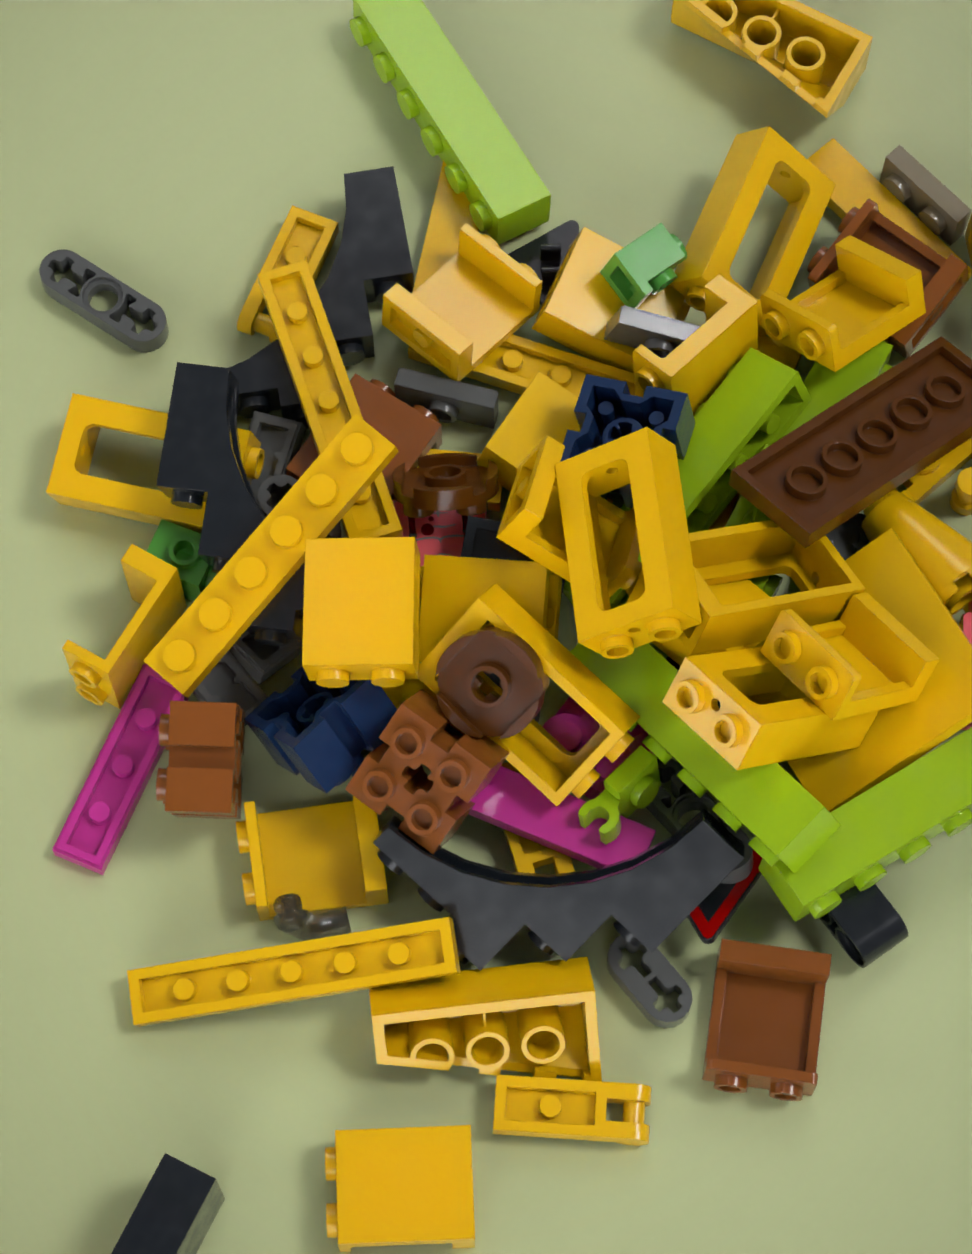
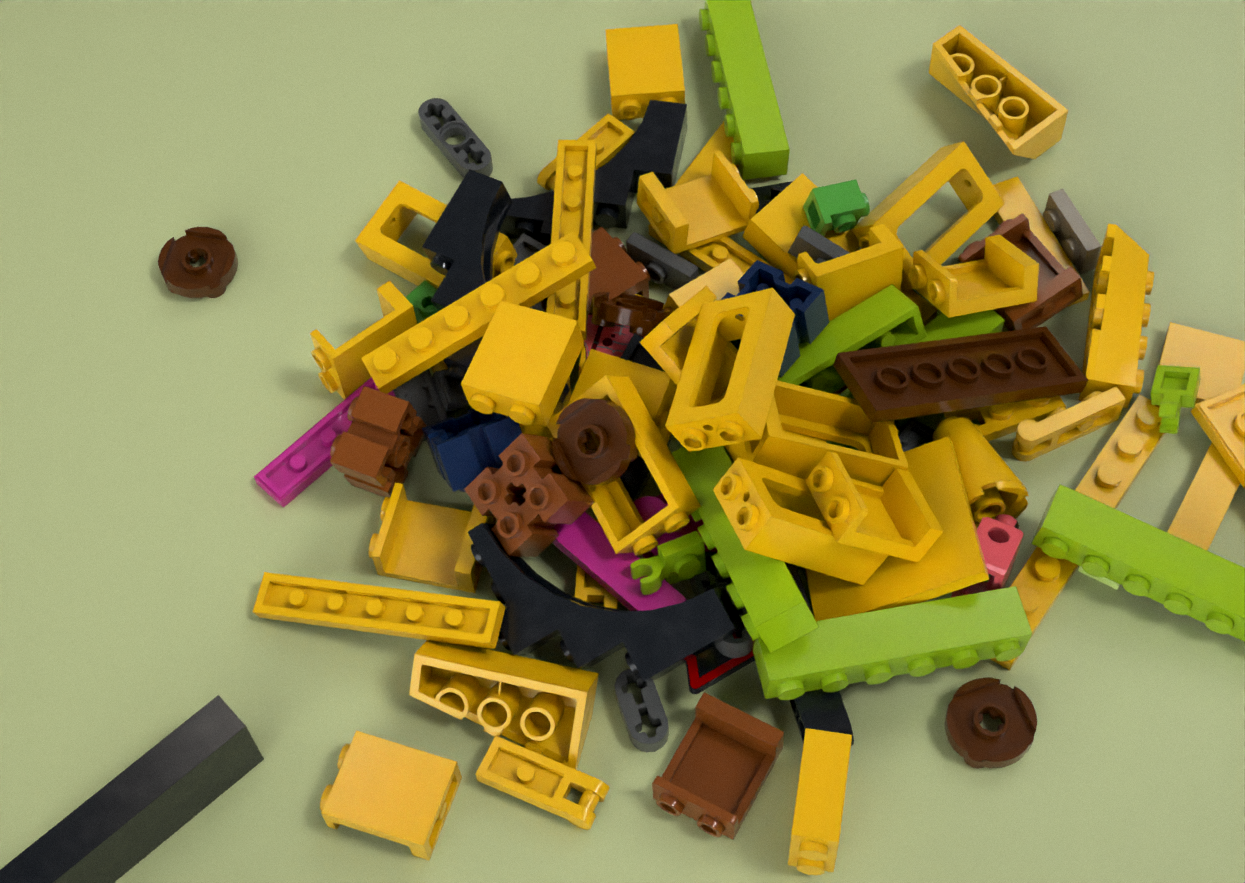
camera: 25 degrees right, 10 degrees down
(306, 925) = (398, 577): clear smoke arm -> none
(314, 128) = (643, 68): none -> yellow panel
(902, 1022) = (819, 801): none -> yellow brick

